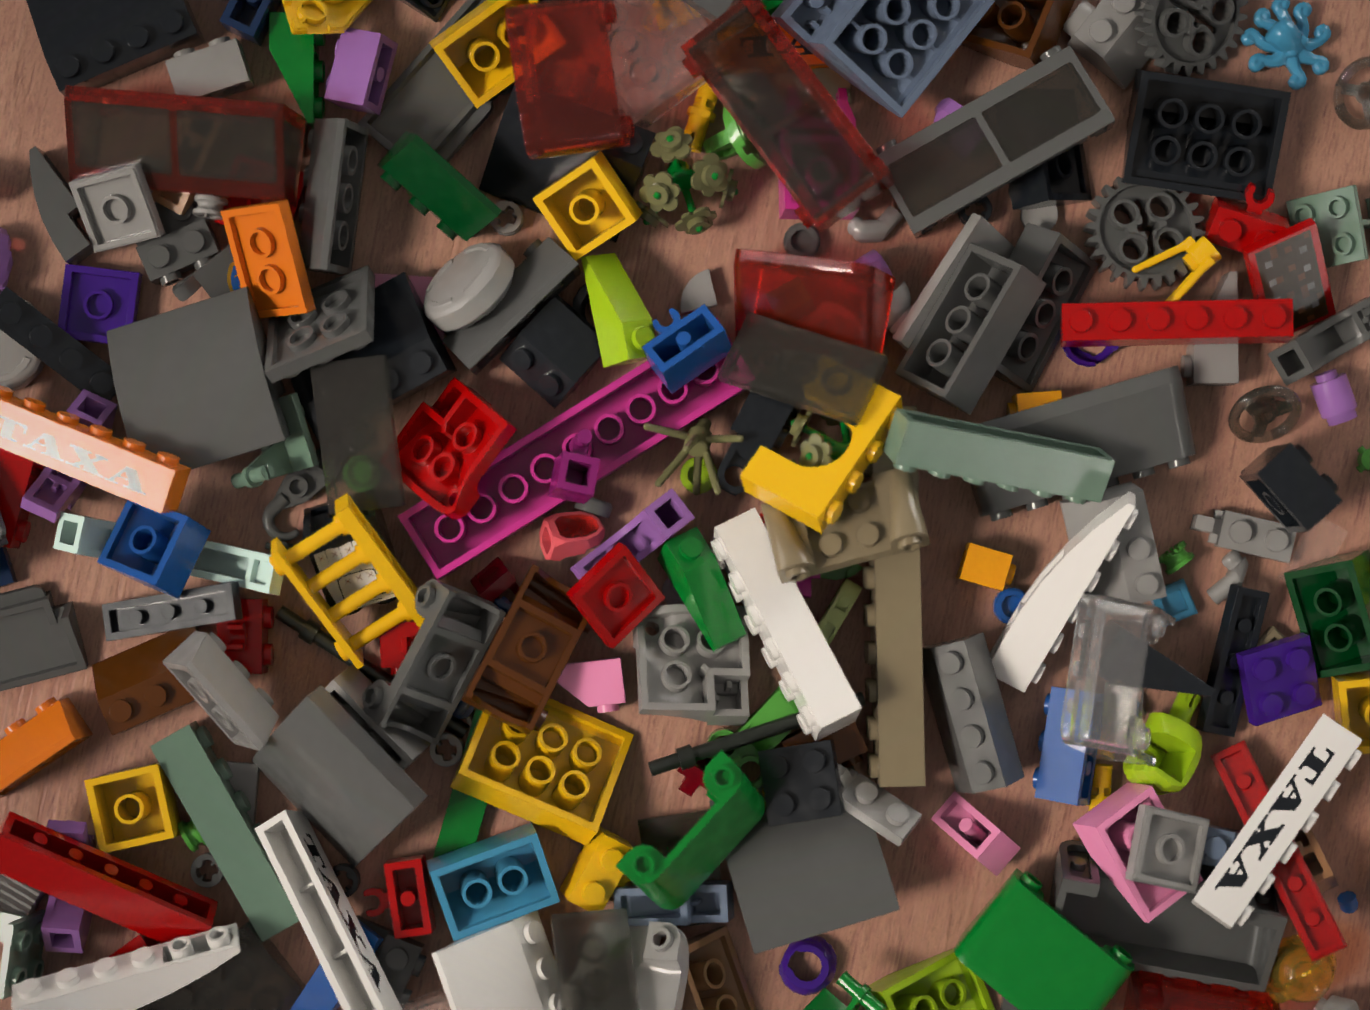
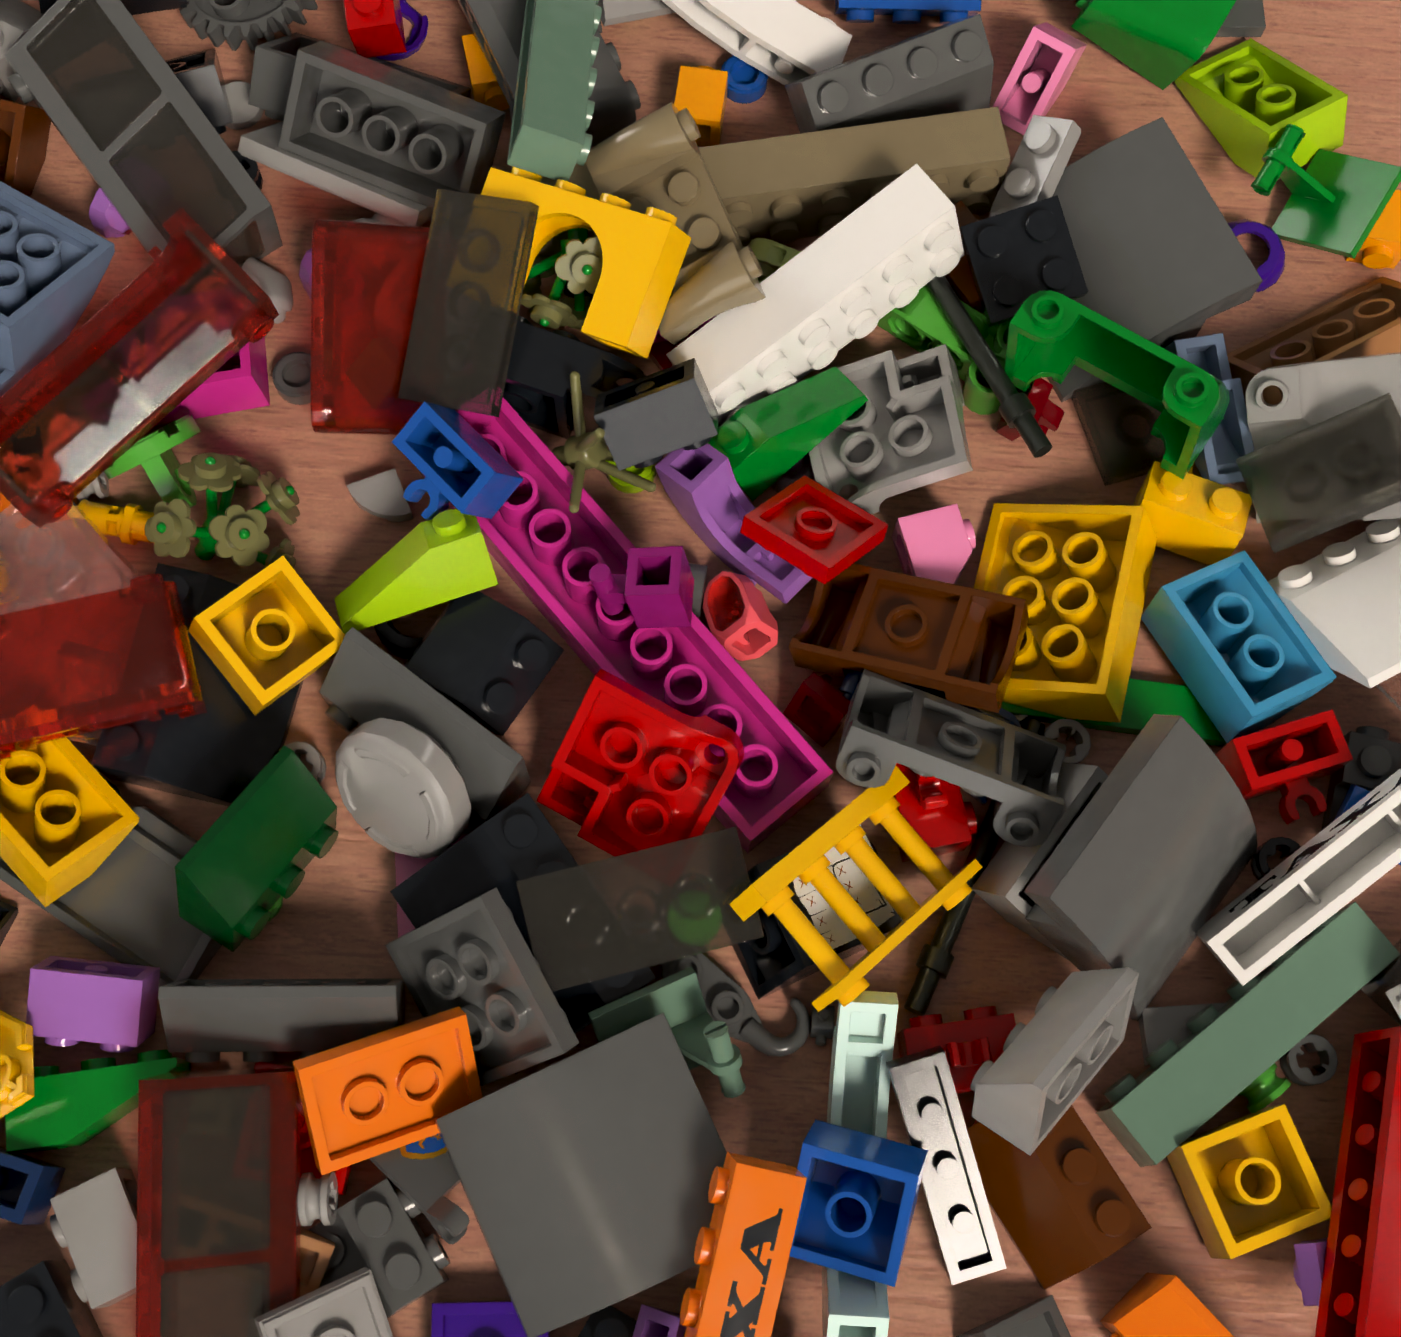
camera: 95 degrees left, 15 degrees down
(701, 492) = (657, 415): none -> black brick

